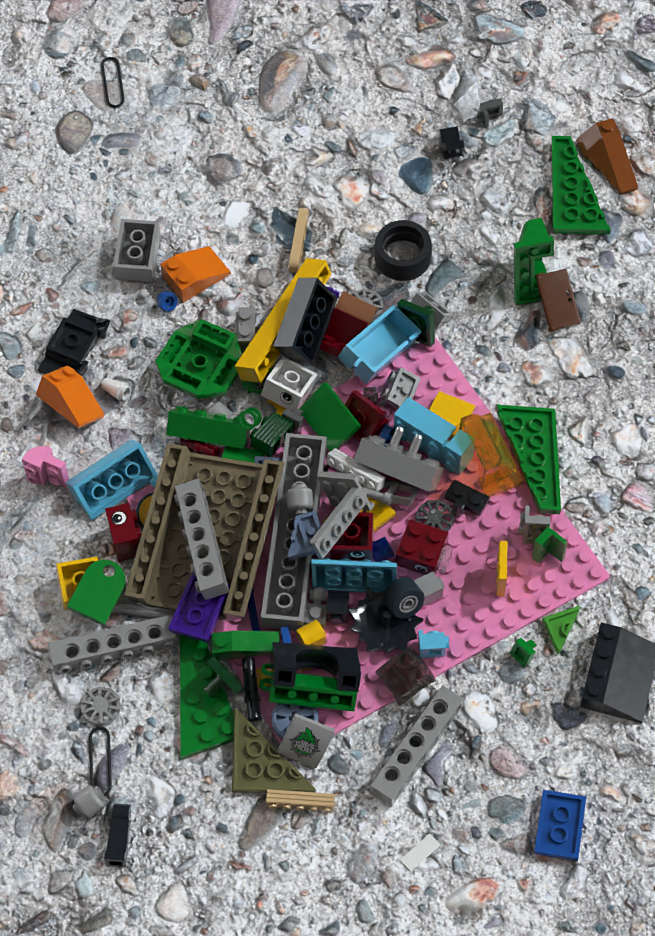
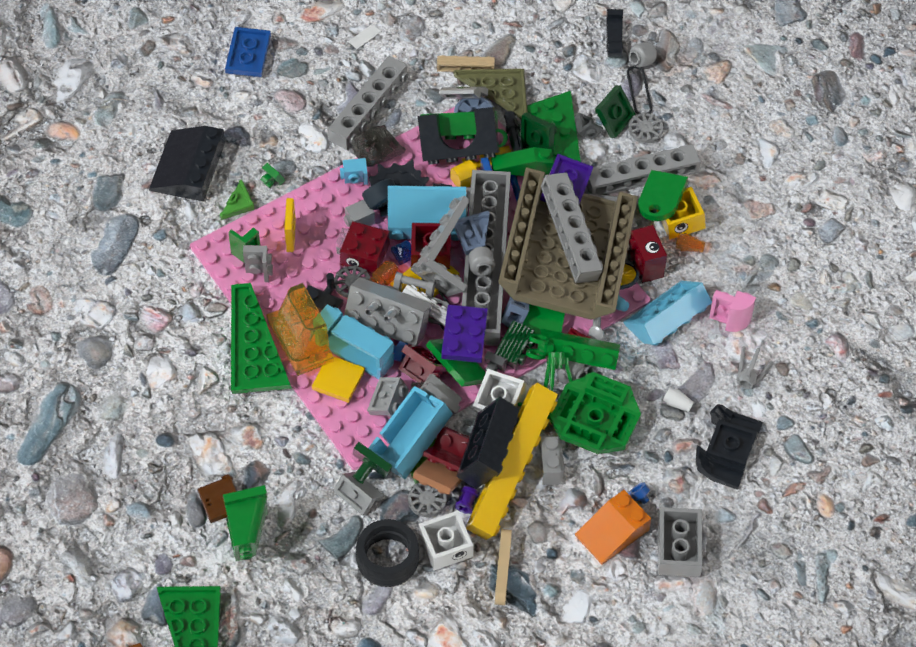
camera: 175 degrees right, 5 degrees down
(69, 396) = (721, 378): orange slope -> none
(74, 553) = (689, 243): none -> clear orange cone
(134, 715) = (615, 111): none -> dark green tile
(168, 702) = (586, 126): none -> dark grey bracket
(232, 404) = (556, 361): none -> green plant
(322, 428) = (464, 333): none -> dark purple plate
(348, 381) = (441, 391): none -> light grey panel
(349, 257) = (445, 540): none -> white brick
(399, 519) = (385, 273): none -> clear orange brick

